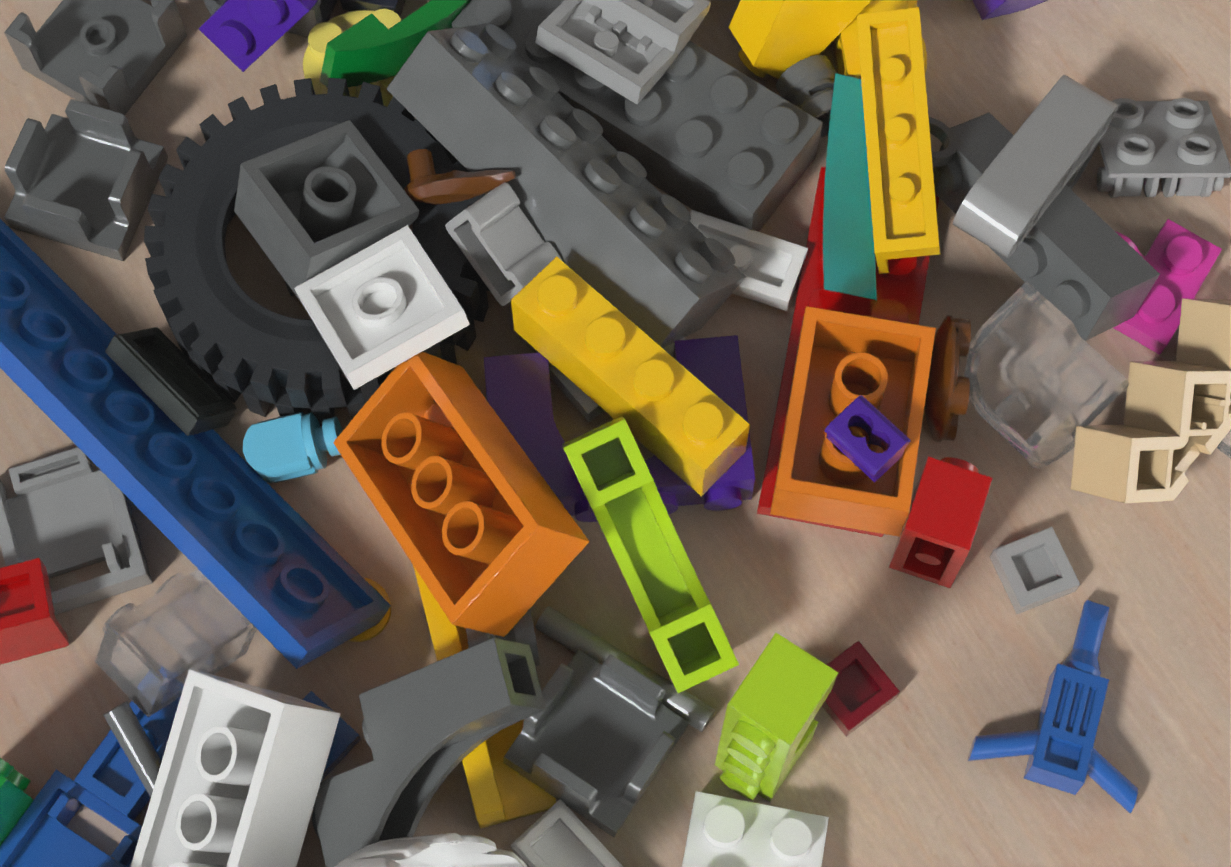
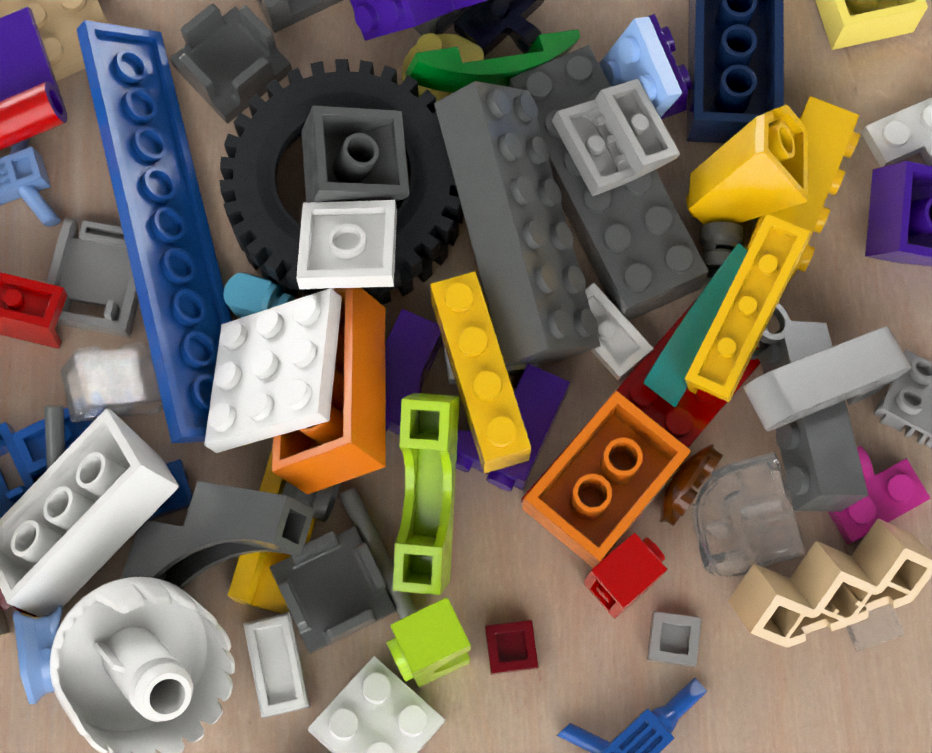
camera: 30 degrees right, 5 degrees up
(171, 380) = (207, 219): pearl dark grey tile -> none
(378, 510) = (274, 372): none -> white plate
(450, 186) = (437, 188): reddish brown bar -> none
(501, 243) = (449, 242): light grey piece -> none
(880, 432) = (610, 500): dark purple piece -> none

